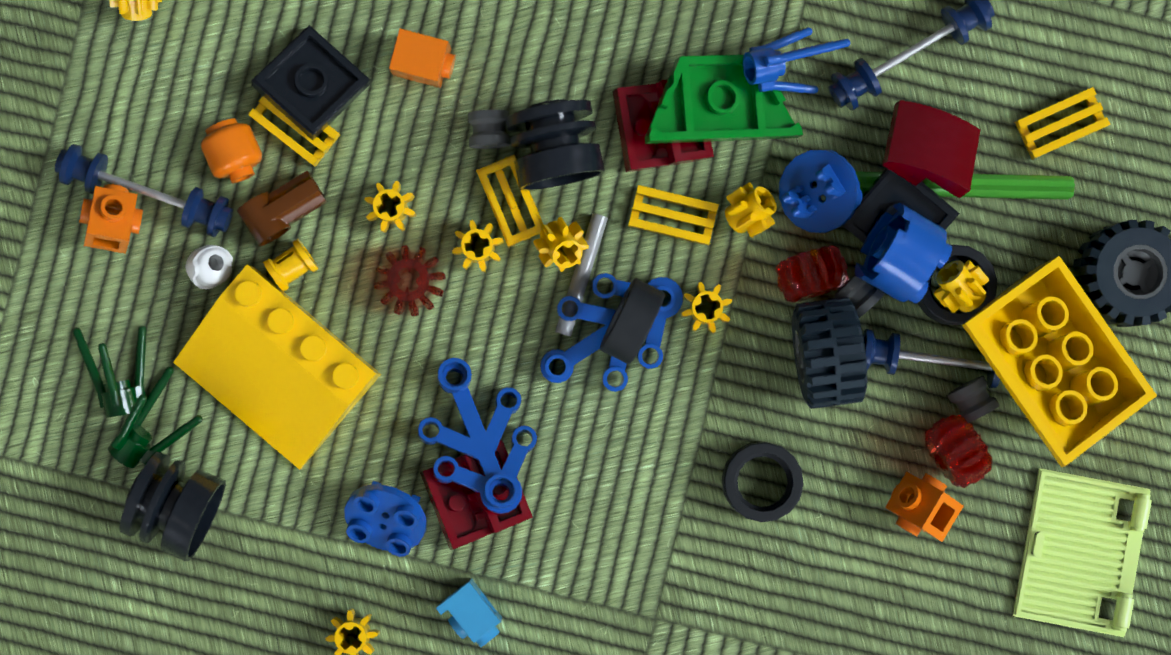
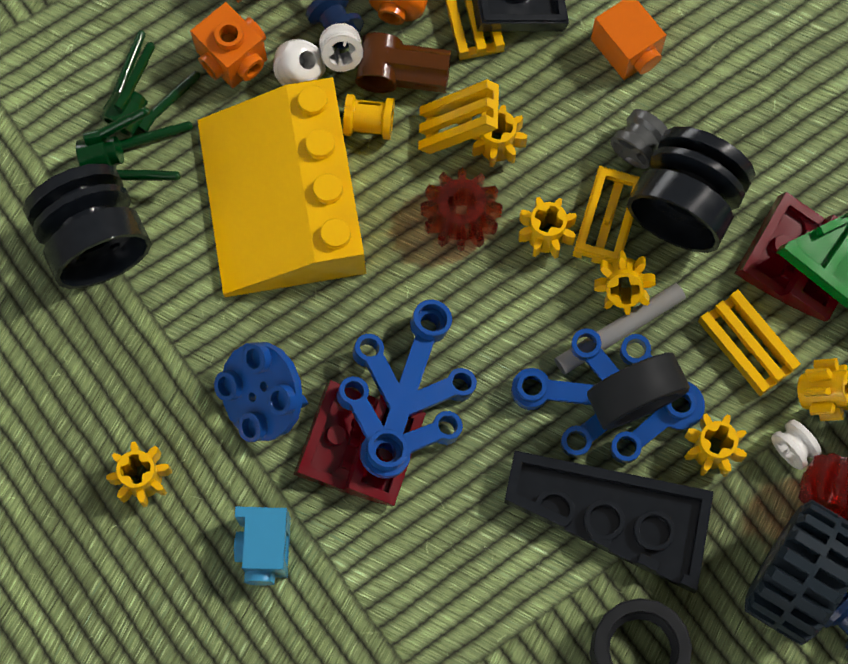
camera: 40 degrees right, 15 degrees down
(138, 292) = (230, 46): none -> orange brick
(226, 224) = (341, 61): none -> white bush
(339, 233) = (459, 109): none -> yellow tile
(689, 400) = (627, 515): none -> black wing
(757, 263) = (796, 444): none -> white bush

